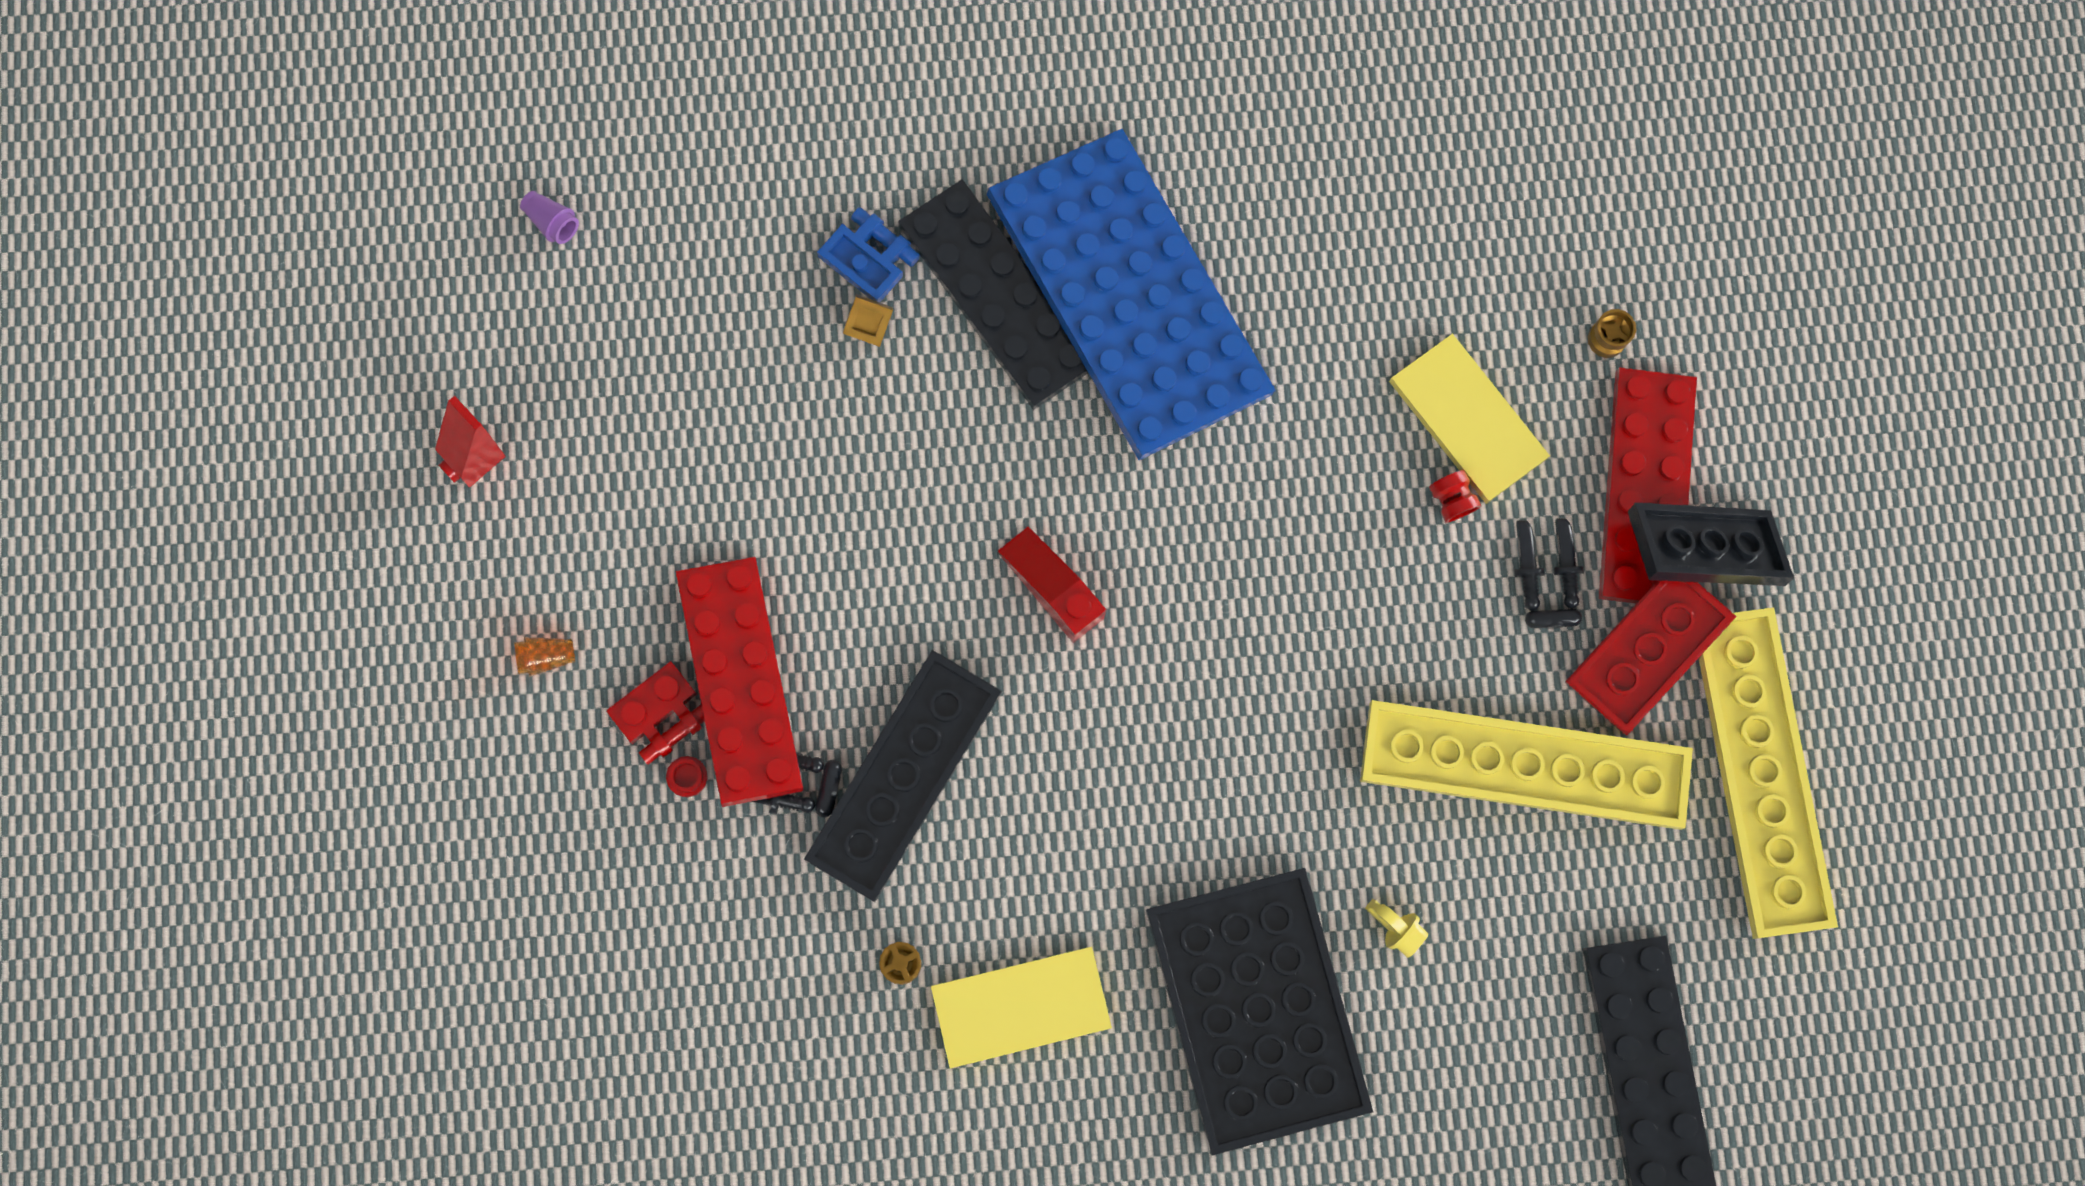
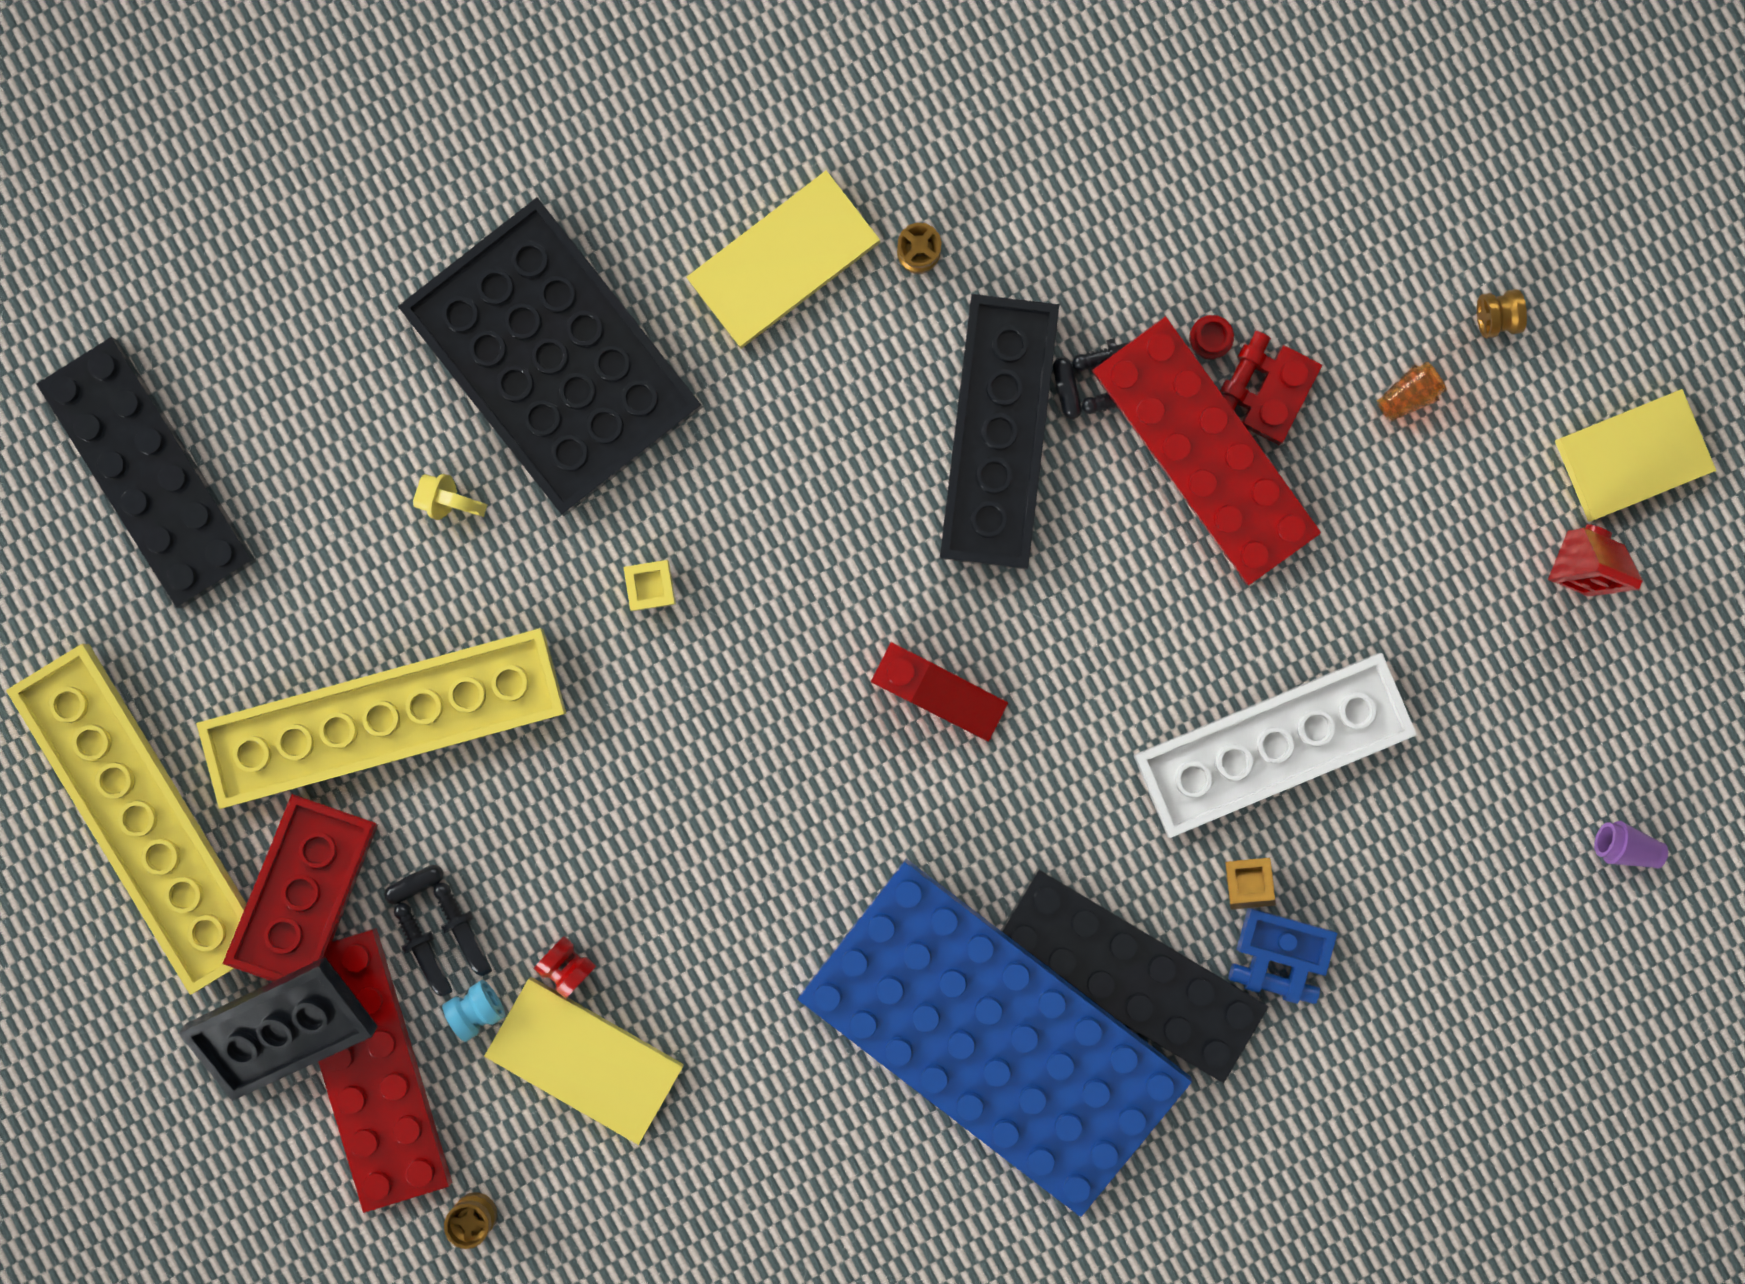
camera: 165 degrees right, 10 degrees up
(383, 522) = (1635, 455): none -> light yellow tile
(435, 686) = (1501, 313): none -> pearl gold wheel
(795, 420) = (1275, 745): none -> white plate
(1255, 776) = (649, 585): none -> light yellow plate
(1540, 494) = (477, 1008): none -> medium azure wheel

